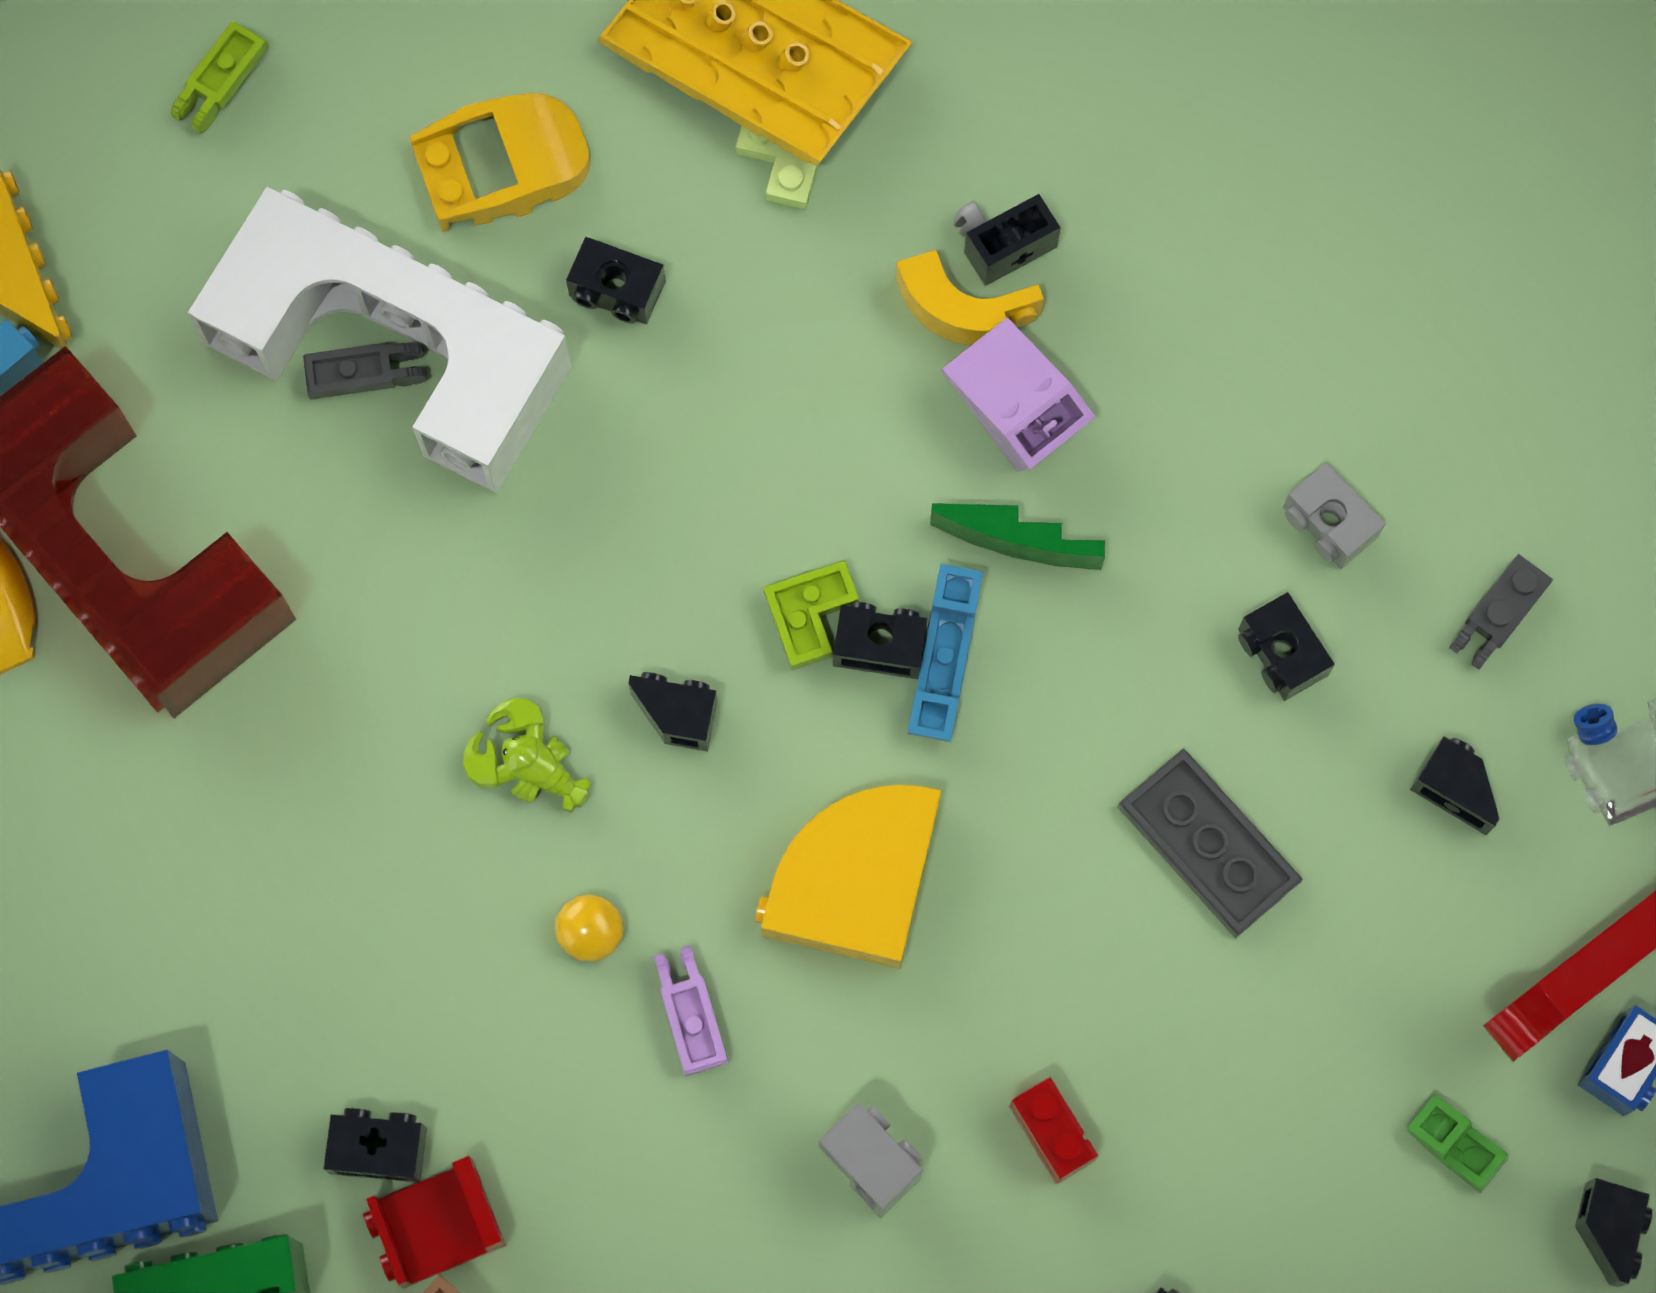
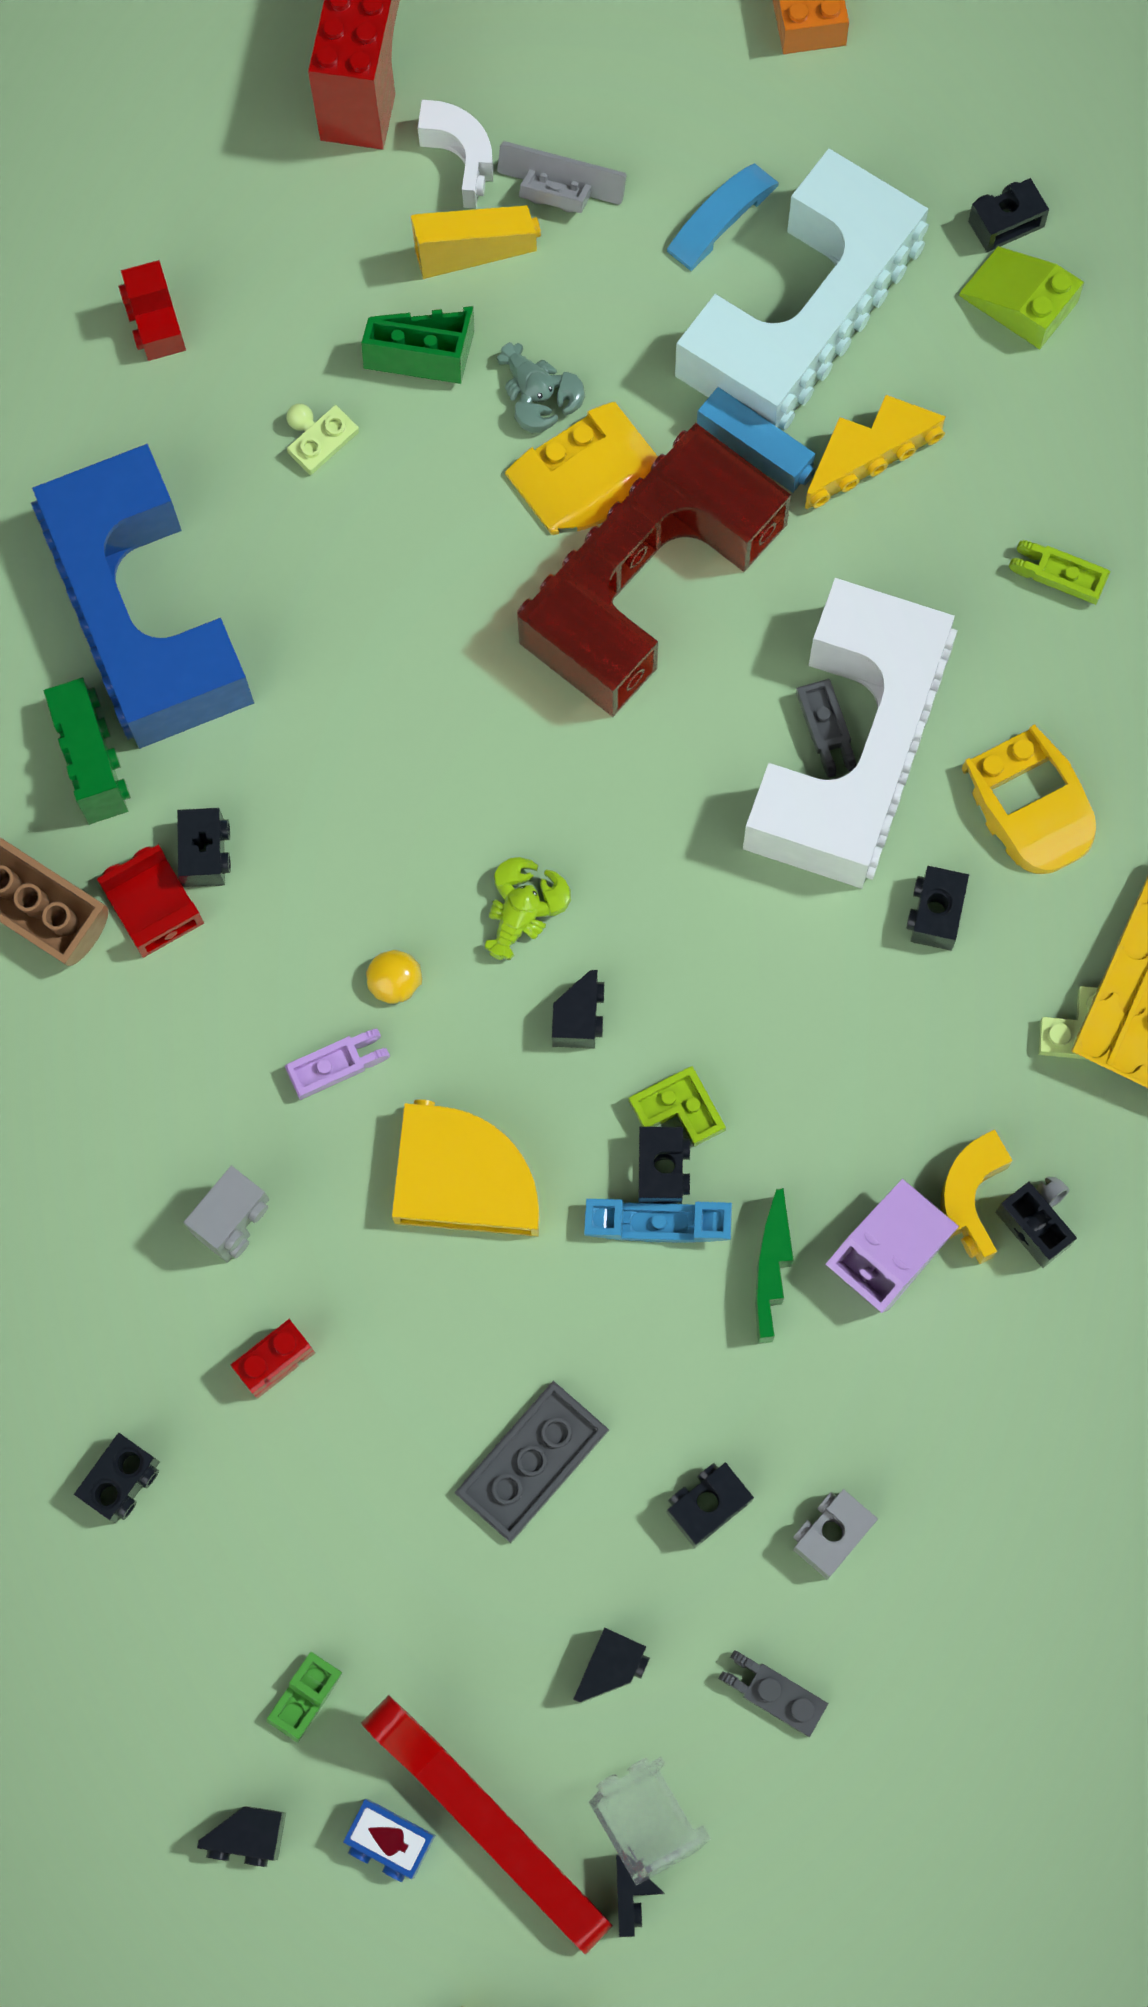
camera: 85 degrees right, 0 degrees up
(1595, 724) = (682, 1785): blue bush -> none

